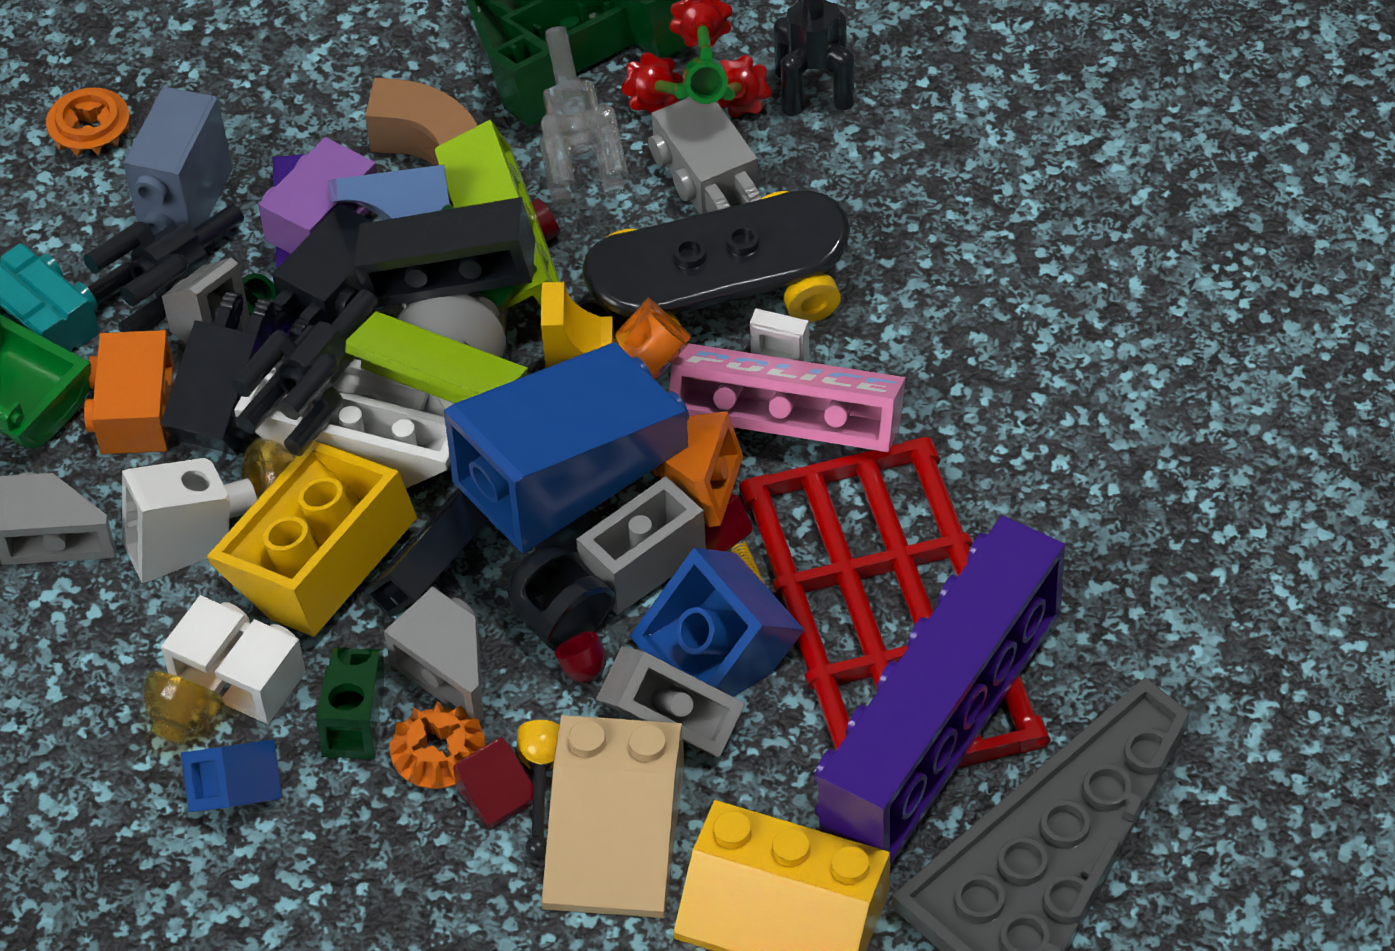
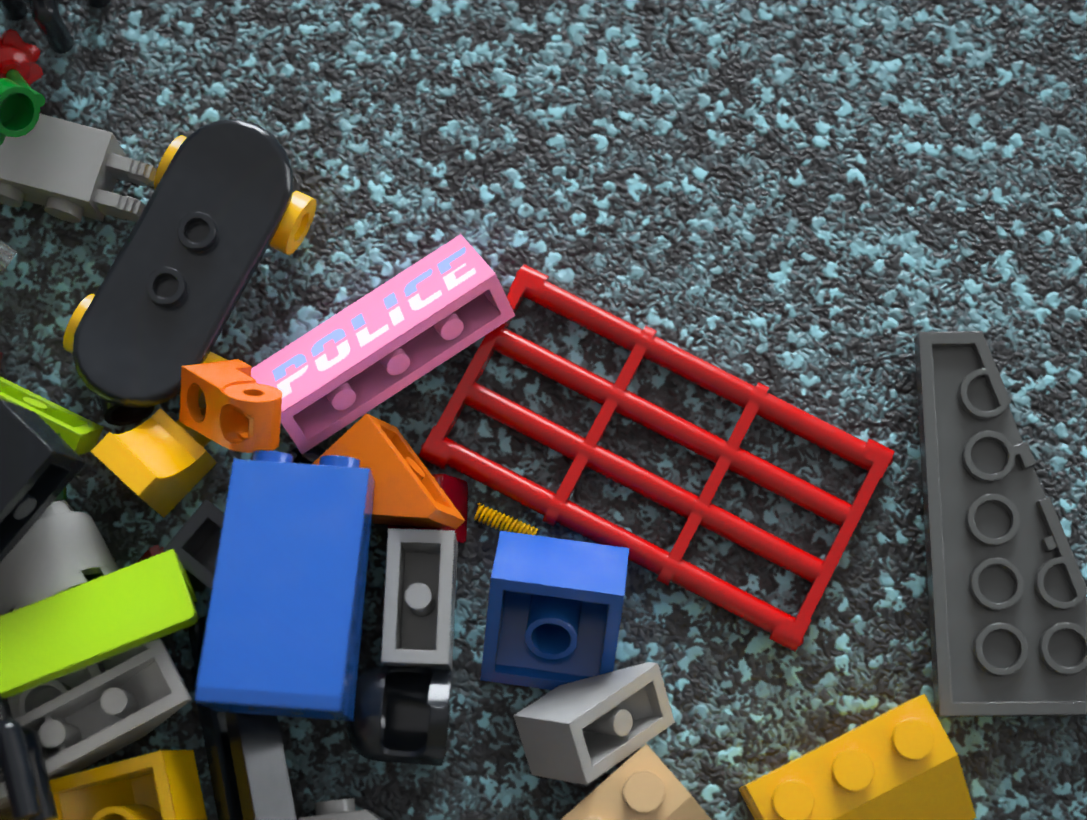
camera: 50 degrees left, 25 degrees up
(582, 657) = (472, 744): dark red hinge -> none
(779, 335) = (310, 288): white tile -> none
(942, 688) = (821, 513): dark purple brick -> none

